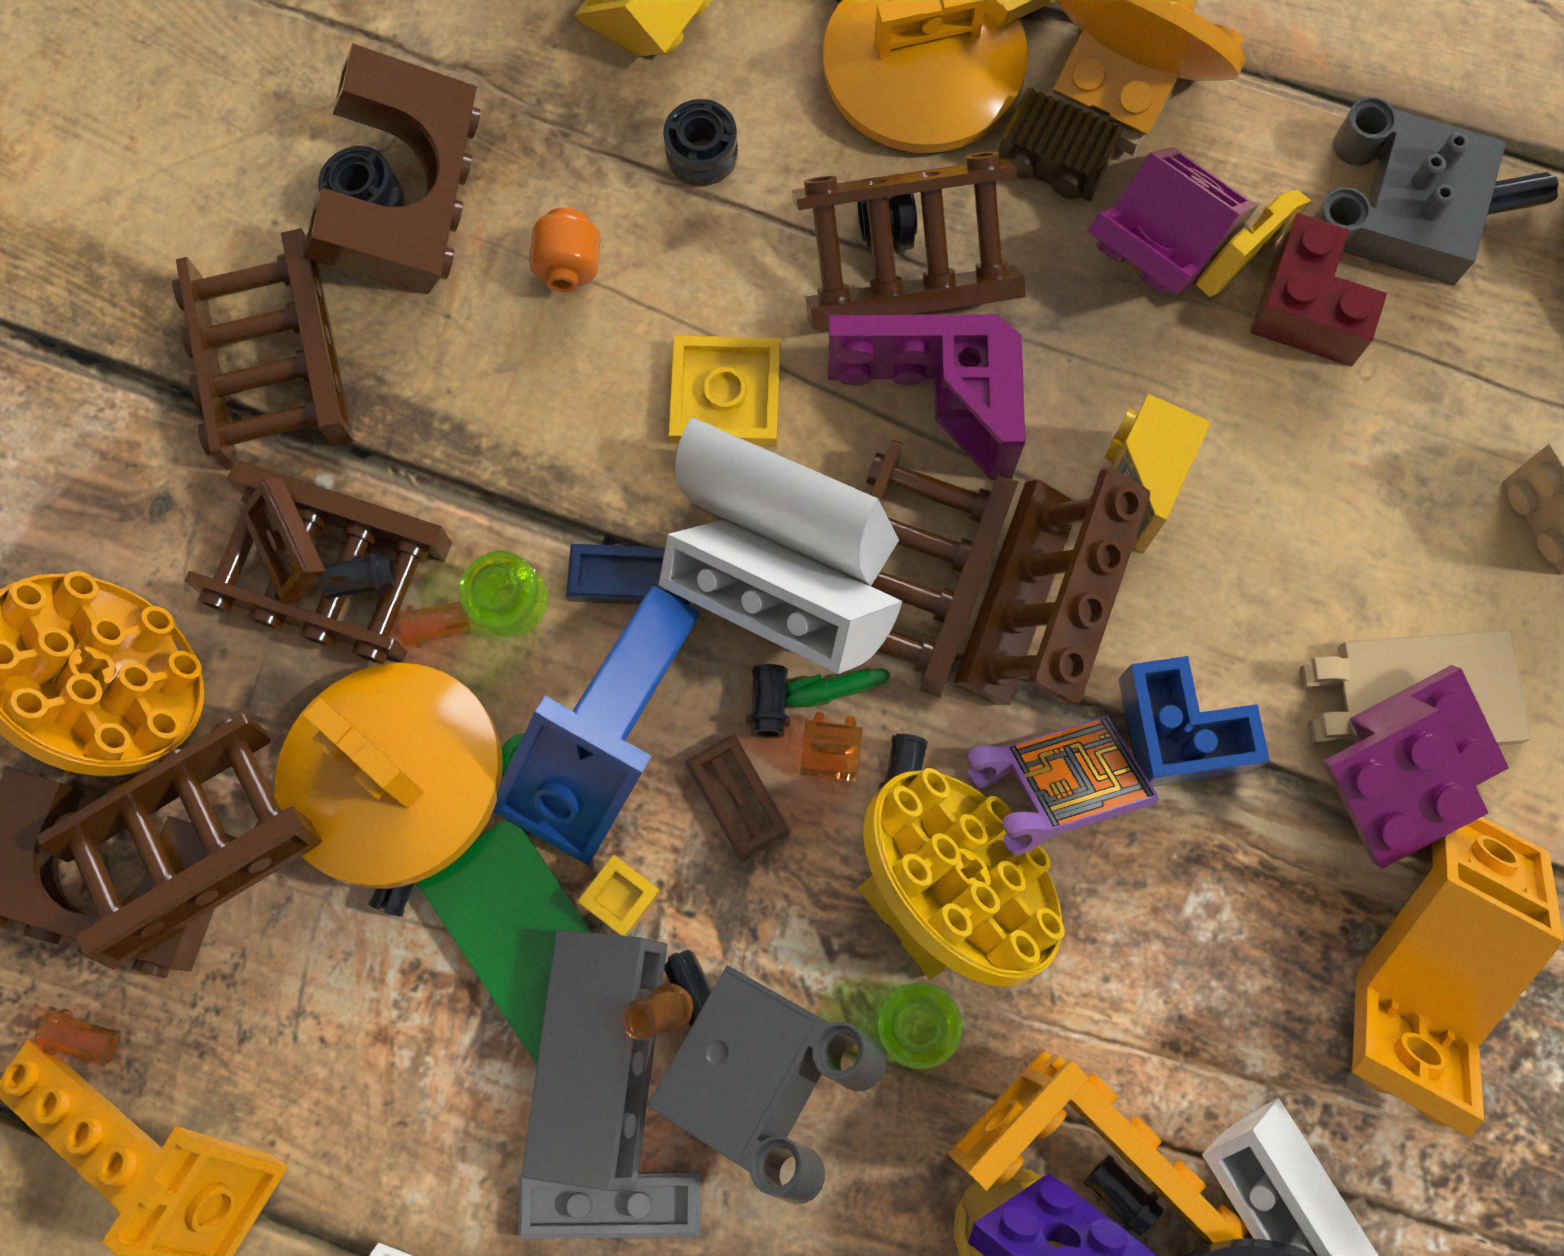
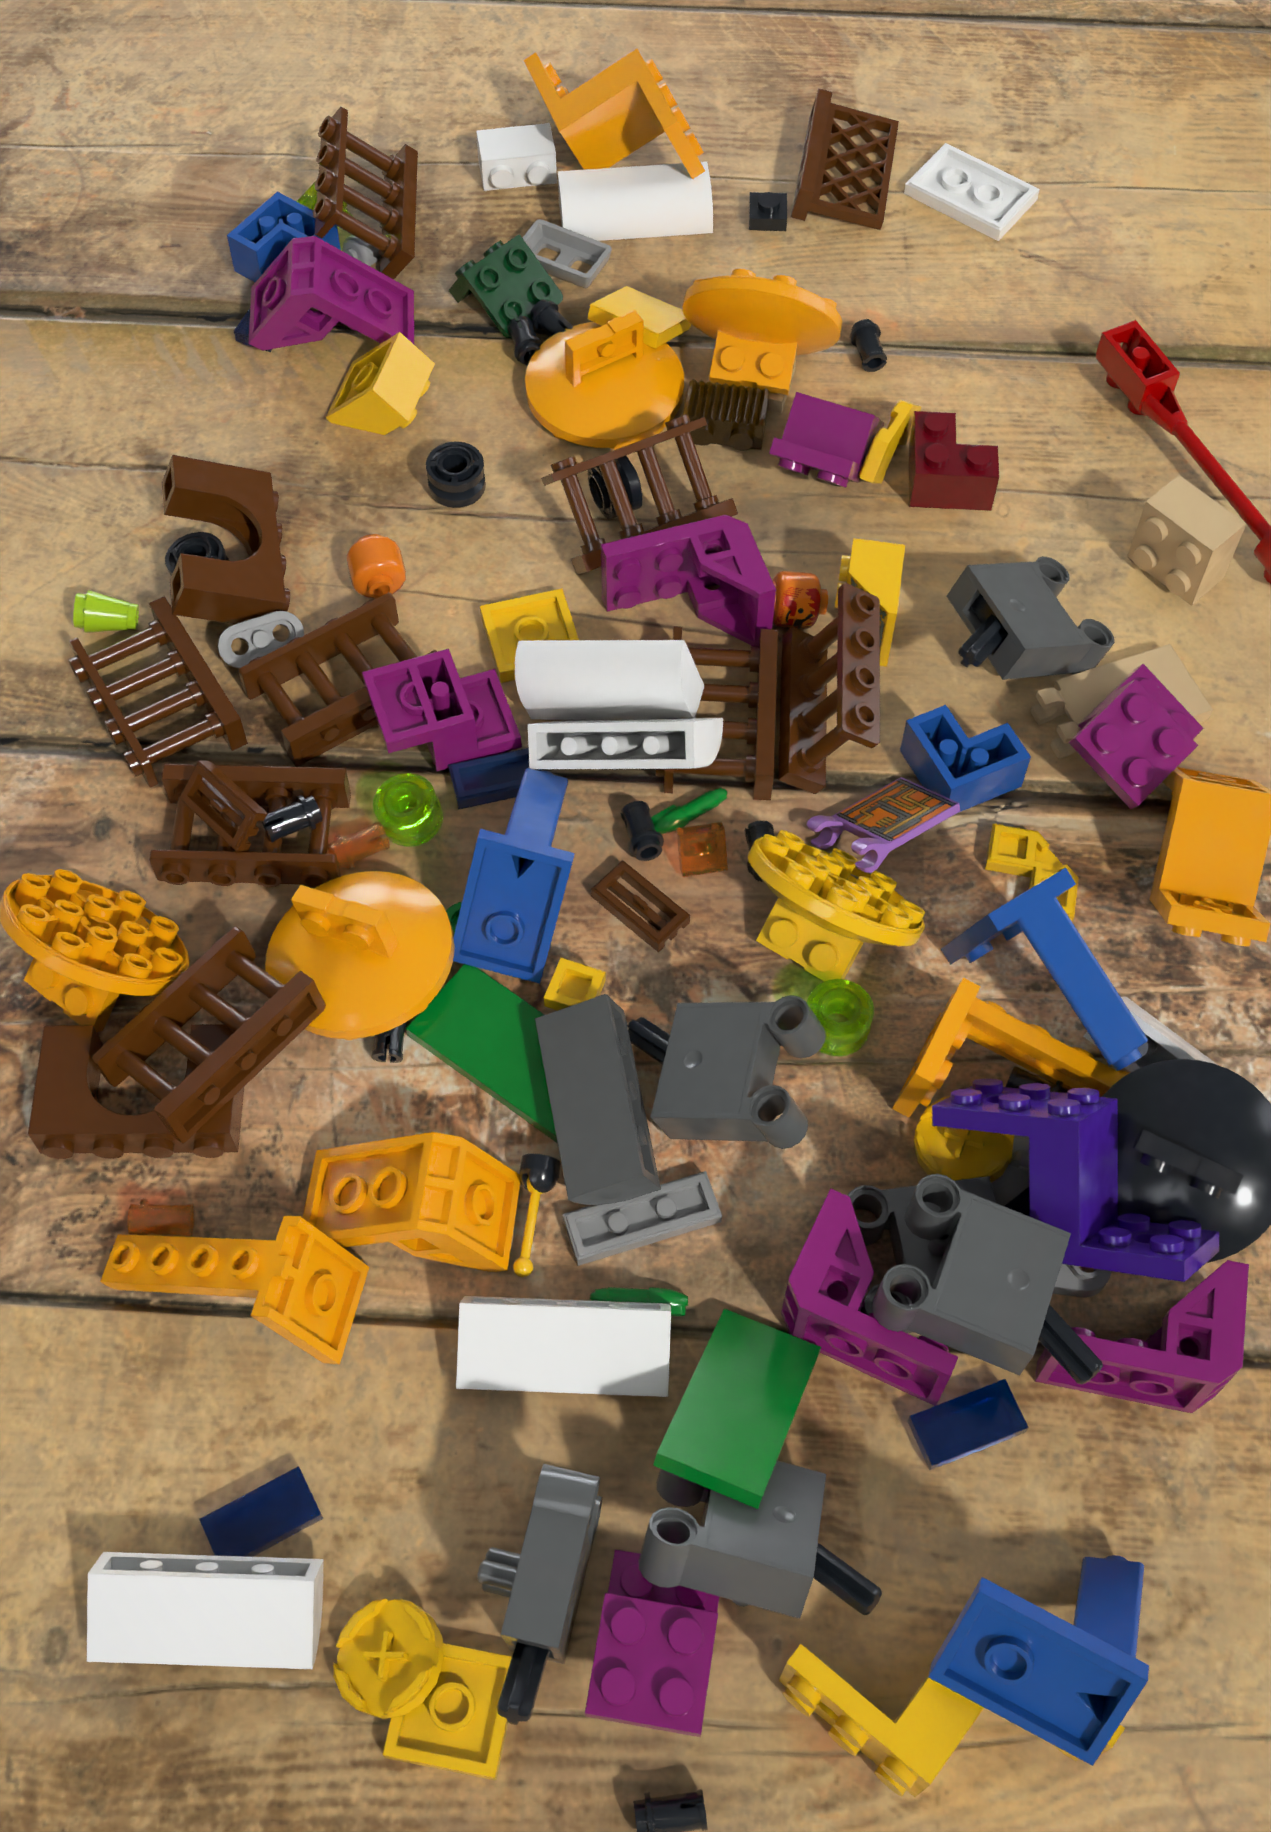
camera: 20 degrees left, 15 degrees down
(234, 223) = (104, 613): none -> lime cone
(351, 1119) = (419, 1193): none -> light orange bracket
(404, 312) = (259, 637): none -> light grey plate
(468, 442) = (344, 715): none -> reddish brown fence
(506, 1120) = (538, 1176): none -> hinge
(575, 478) = (431, 704): none -> magenta bracket
(666, 1010) = (634, 1038): clear orange pin -> none
(1059, 436) = (798, 599): none -> orange head
(1181, 989) = (1066, 959): none -> blue piece
(1242, 916) = (1027, 855): none -> yellow tile
(1276, 78) = (865, 337): none -> black pin
(1328, 559) = (1022, 622): none -> dark grey piece
(1426, 191) = (1000, 384): dark grey piece -> none

